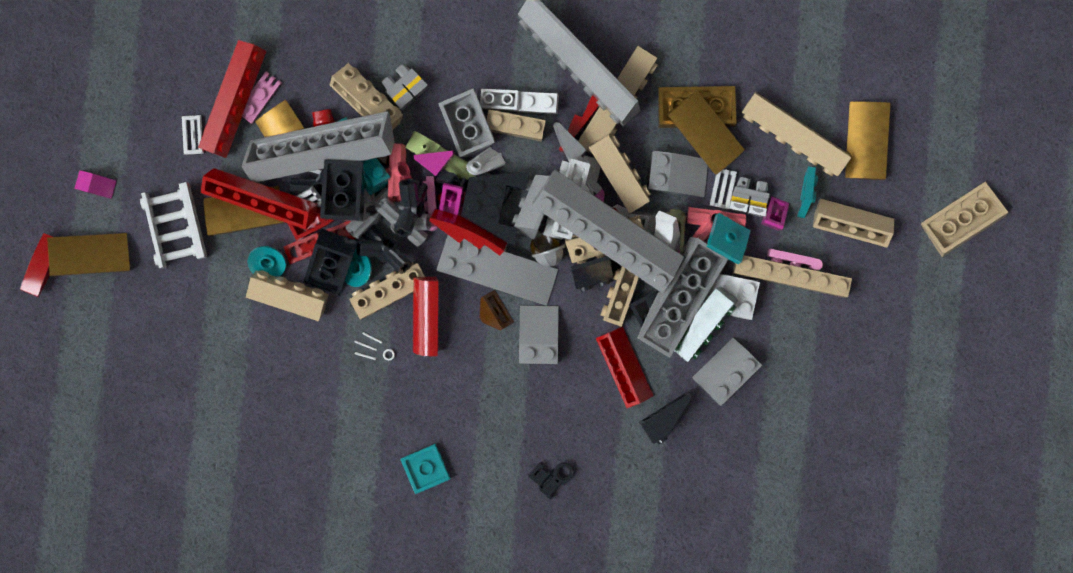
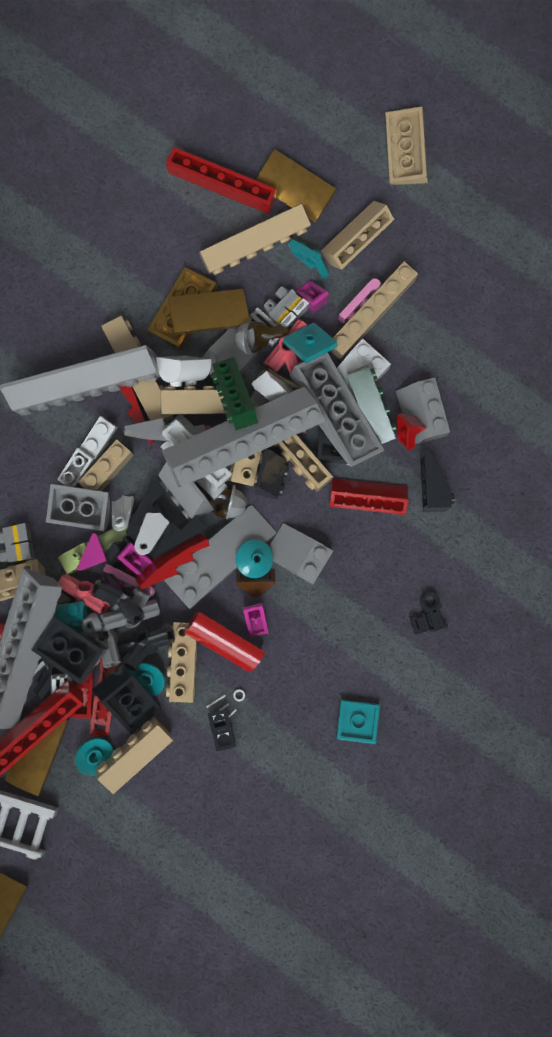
camera: 60 degrees left, 5 degrees down
(351, 357) = (221, 730): none -> black slope
(377, 197) = (94, 622): none -> light grey tile
(460, 331) = (255, 620): none -> dark pink slope
(481, 199) = (150, 532): none -> white piece
(507, 292) = (245, 558): none -> teal dish
(639, 141) = (183, 369): none -> white brick
(641, 201) = (234, 394): none -> dark green brick
(702, 367) = (407, 428): none -> red slope
(707, 187) = (256, 335): none -> piece
(832, 72) = (221, 180): none -> red brick

